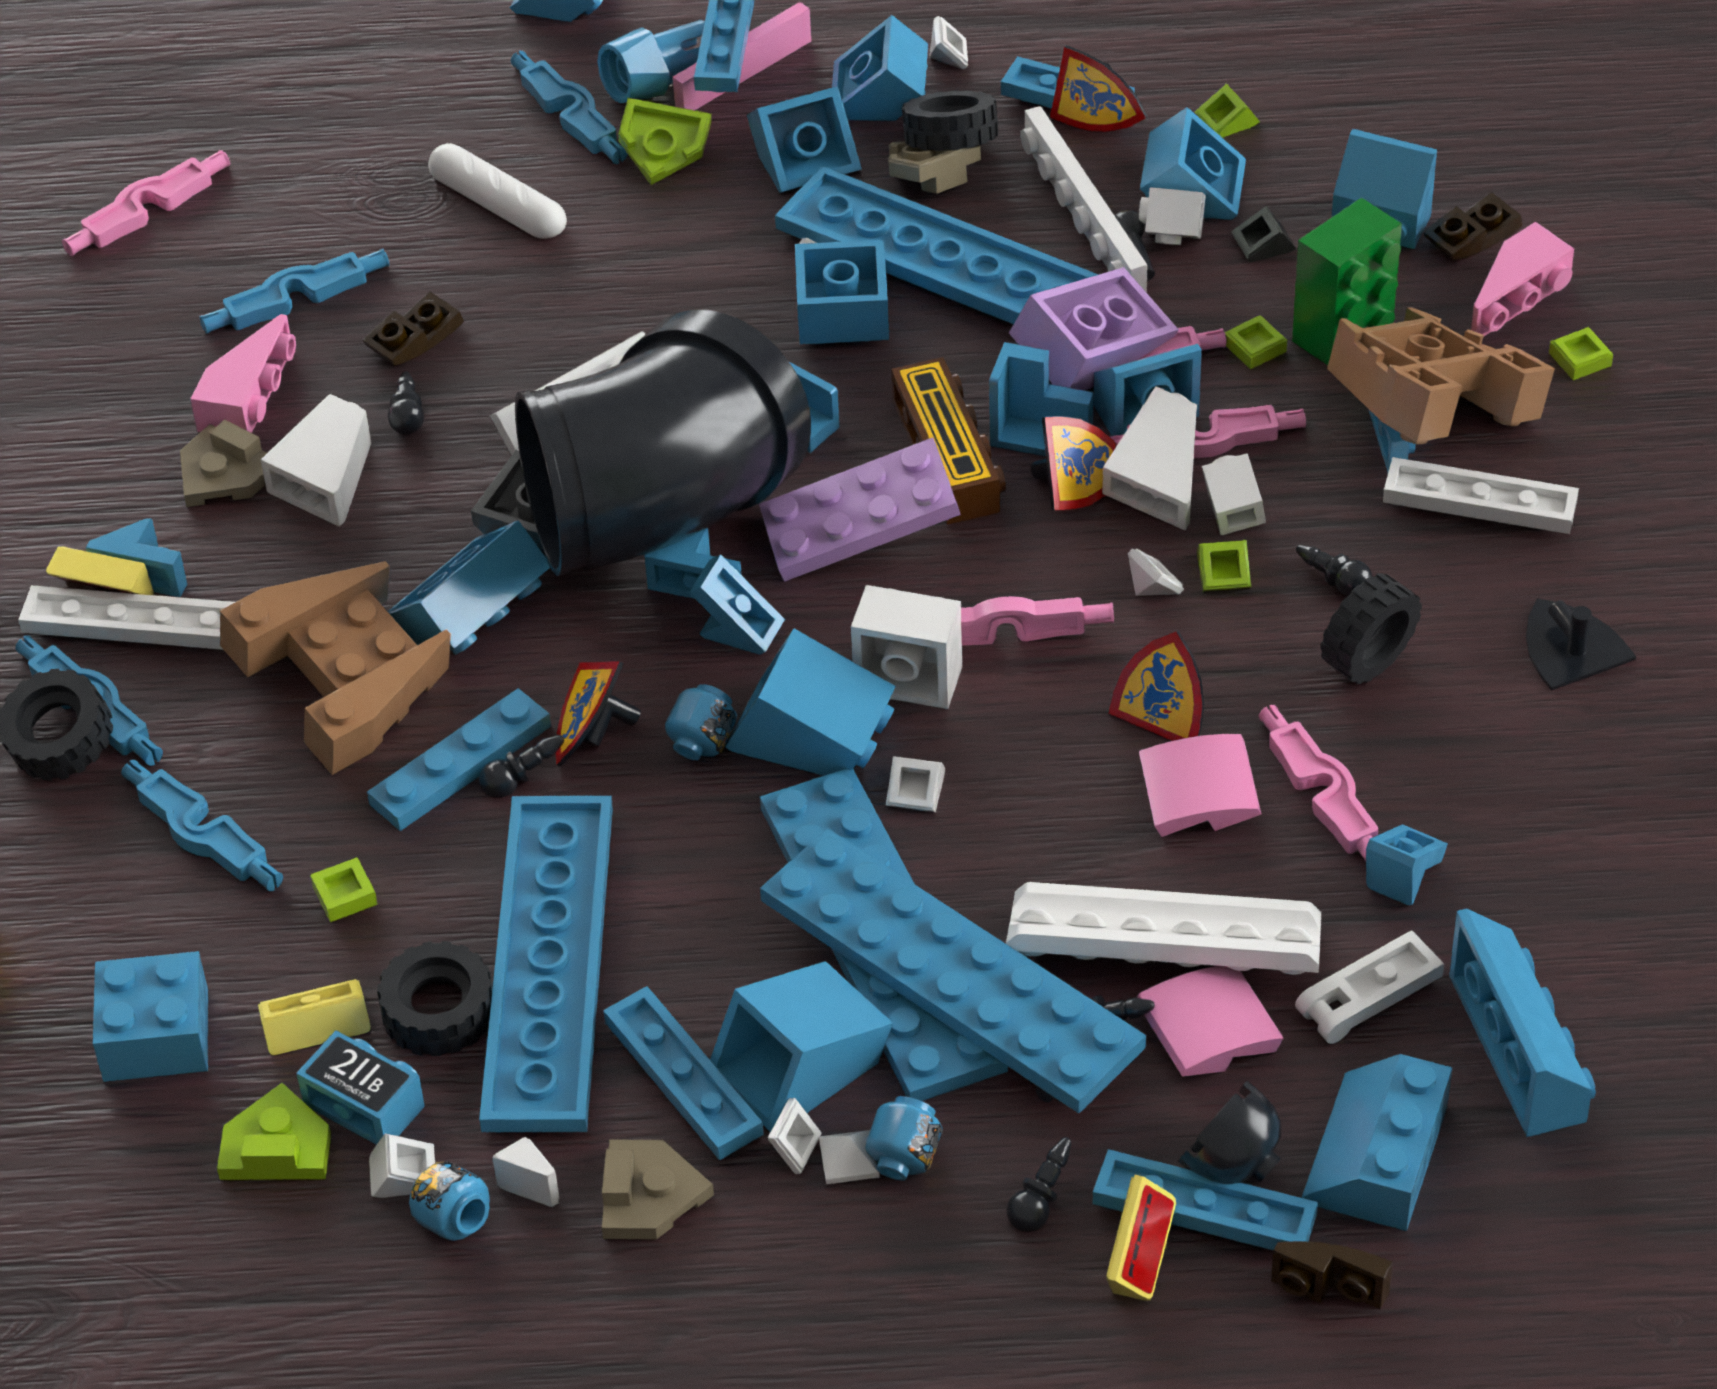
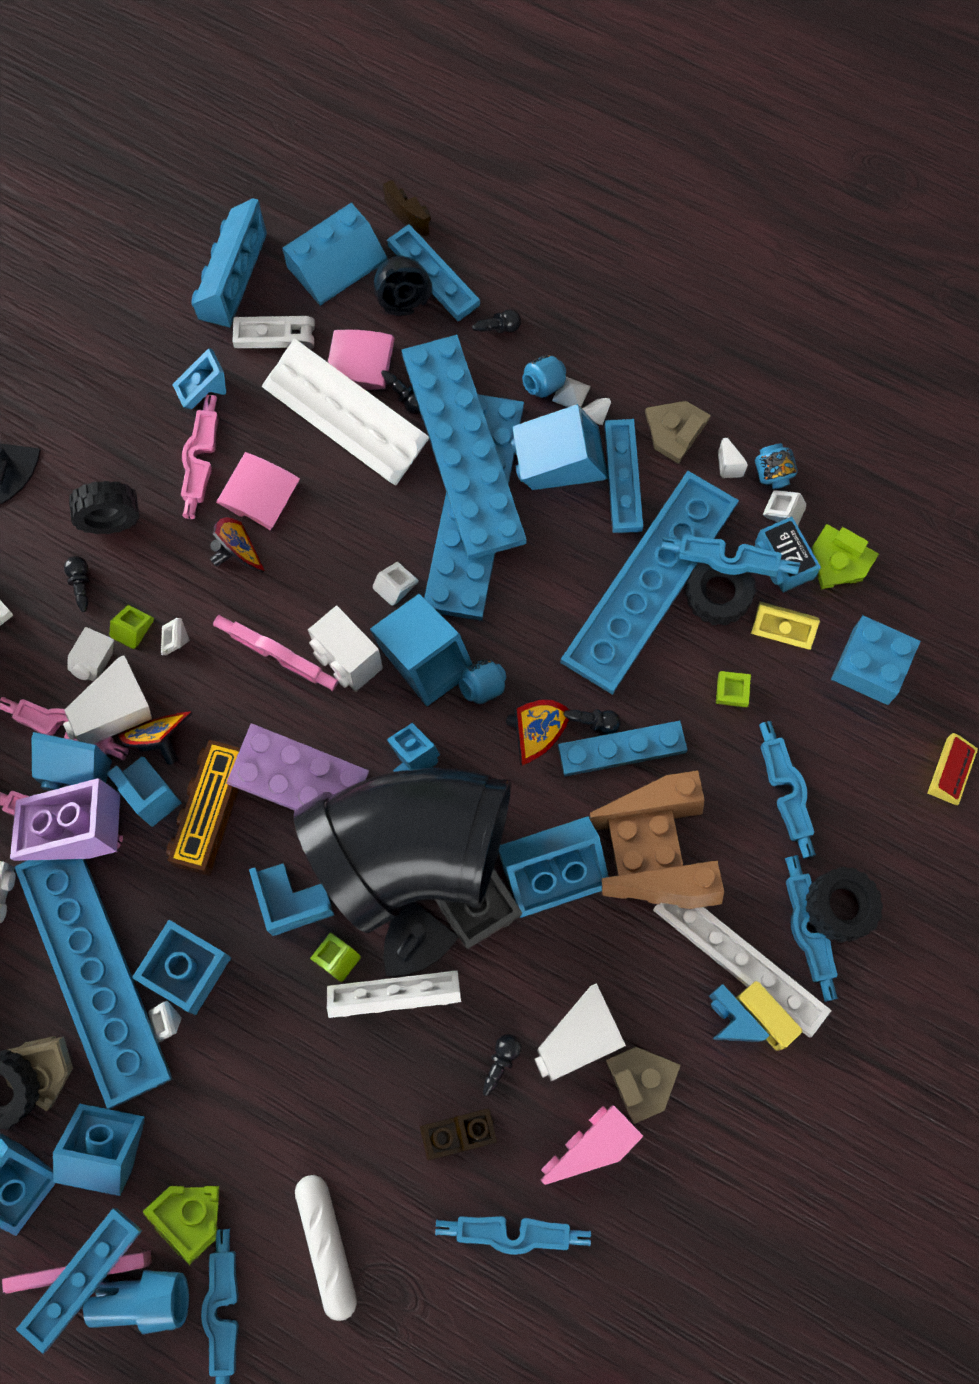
camera: 150 degrees left, 25 degrees up
(415, 1019) = (746, 560): none -> dark azure piece
(1140, 1239) = (478, 266): slope -> none

